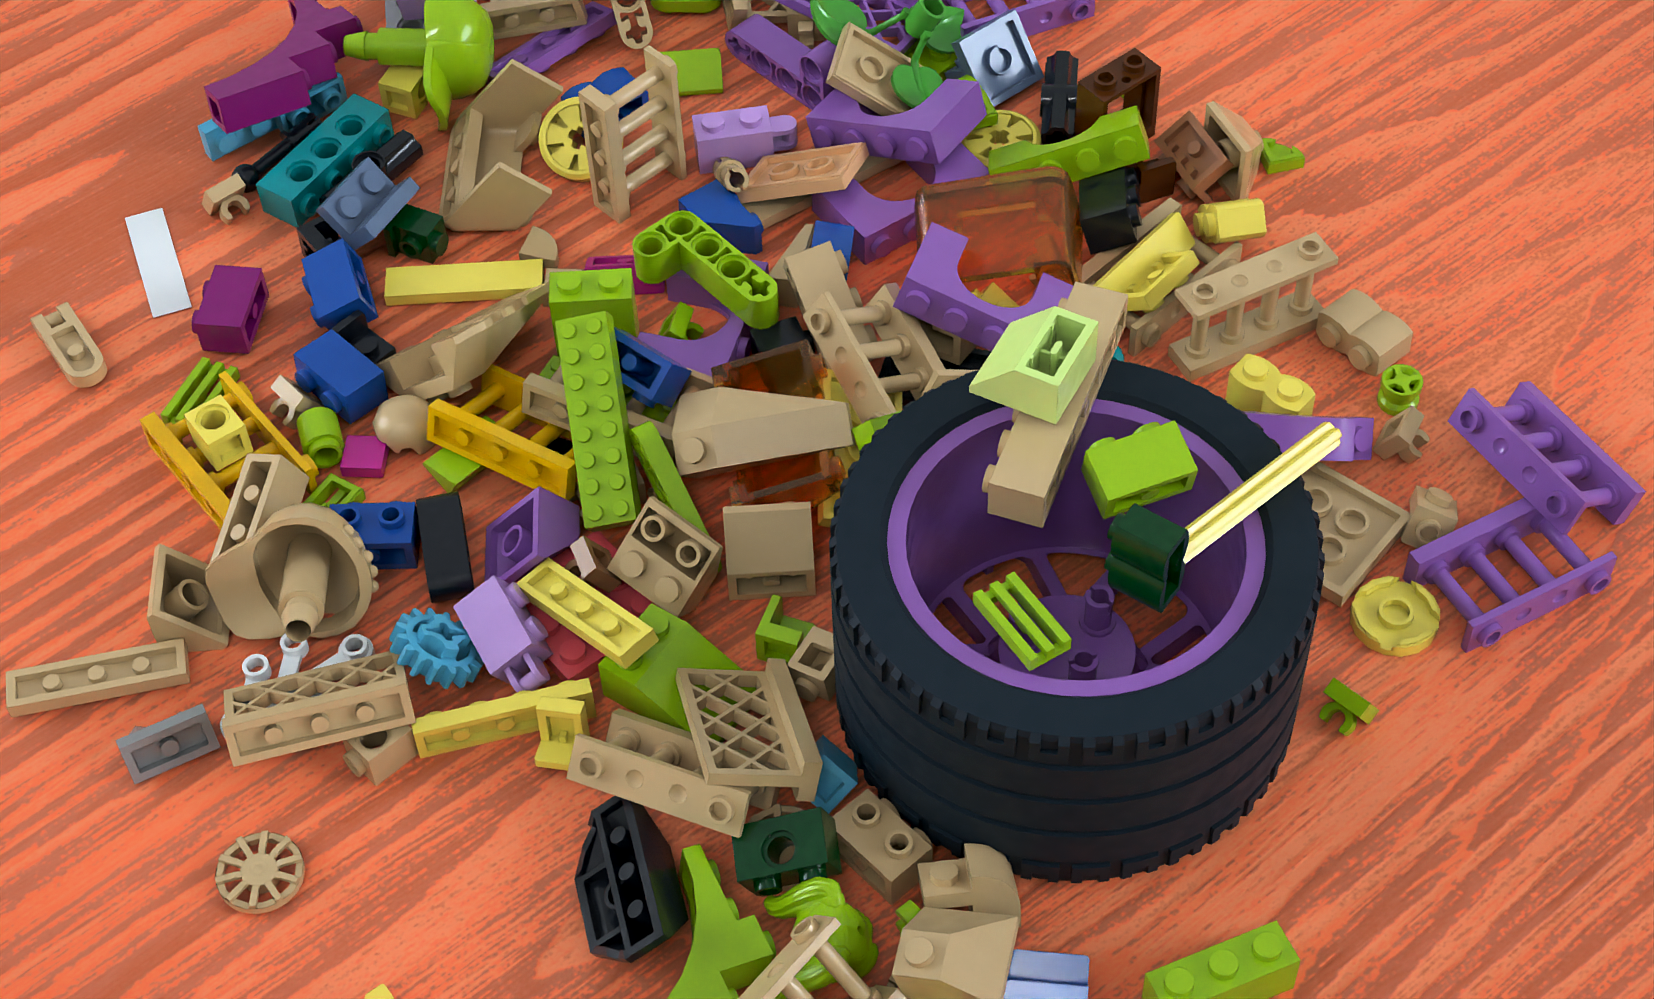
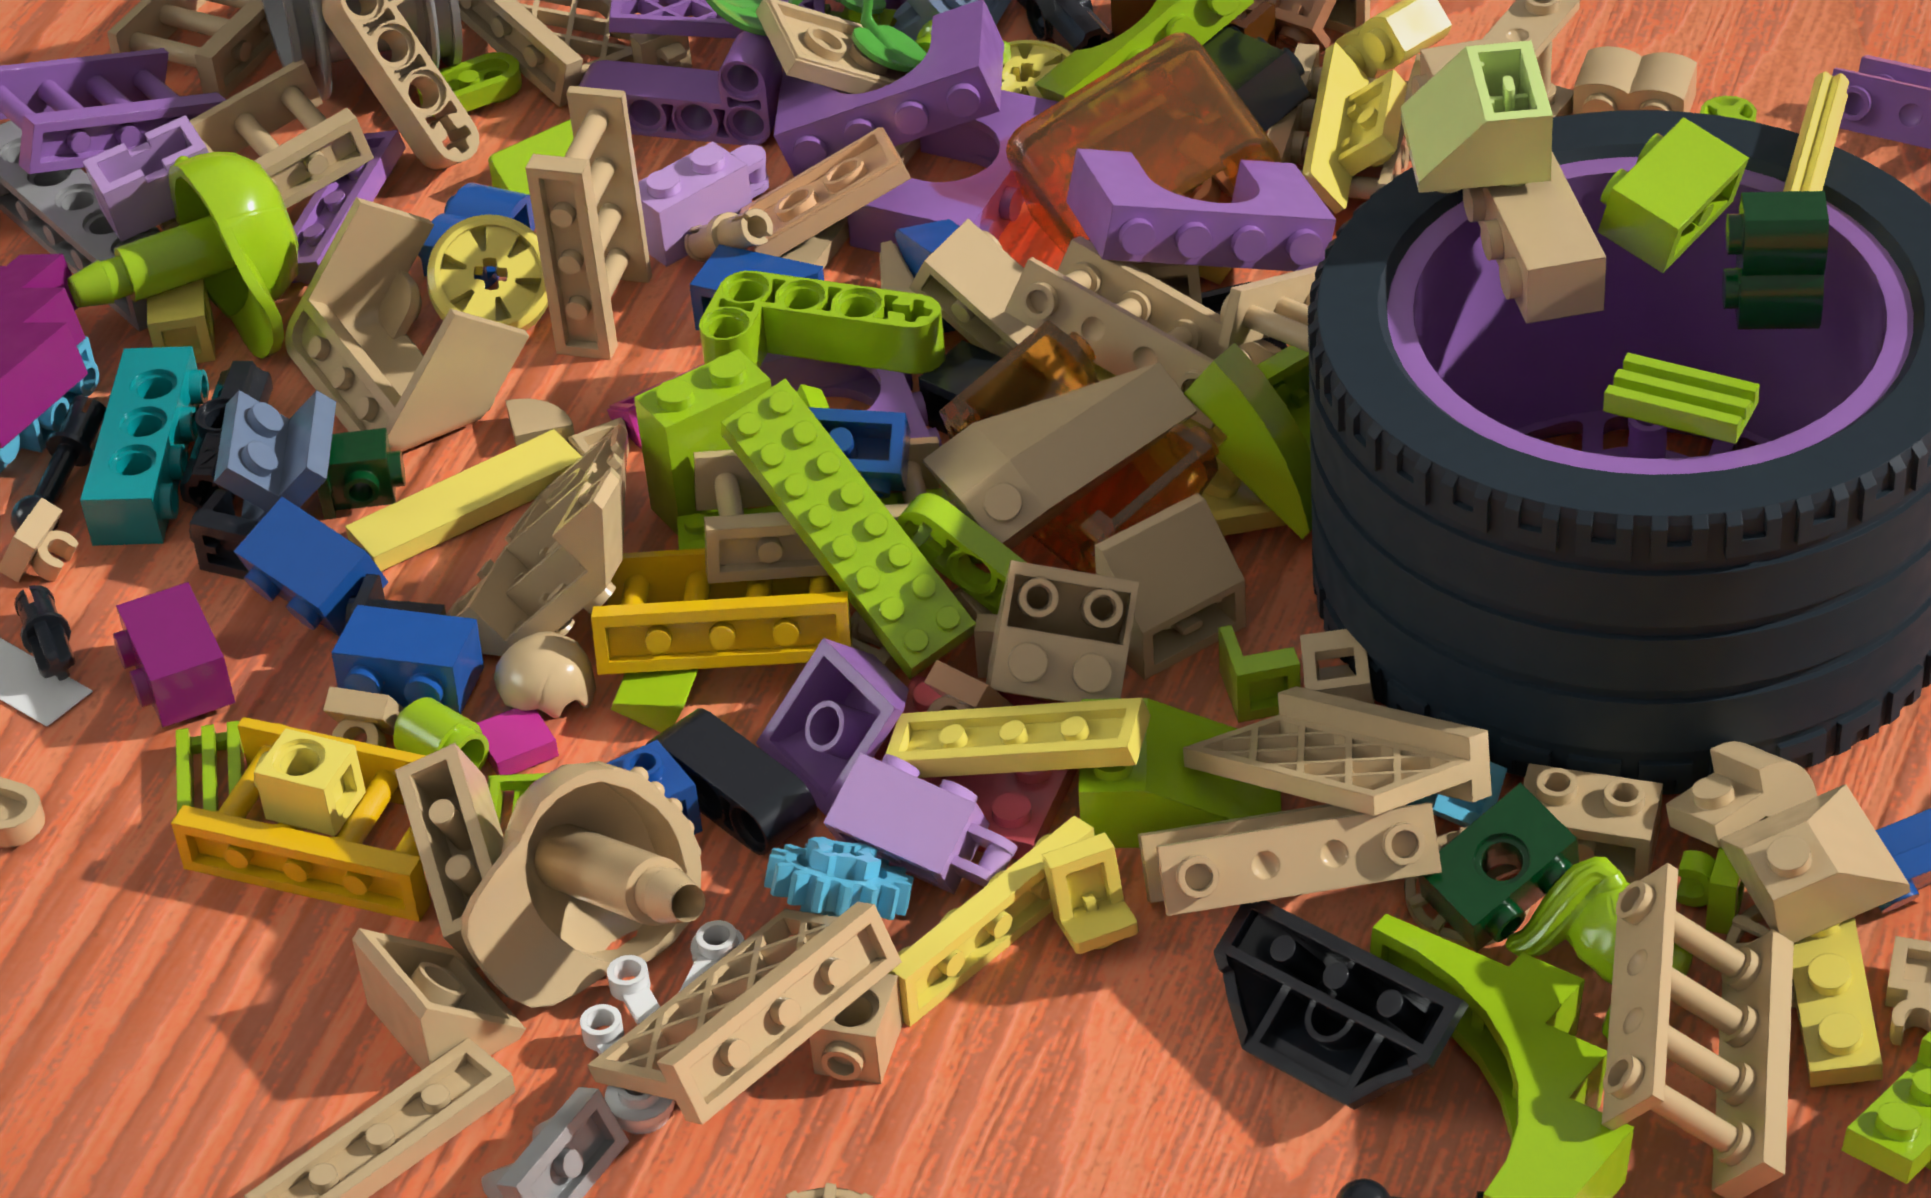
camera: 30 degrees left, 10 degrees down
(189, 258) = (45, 632): none -> black axle

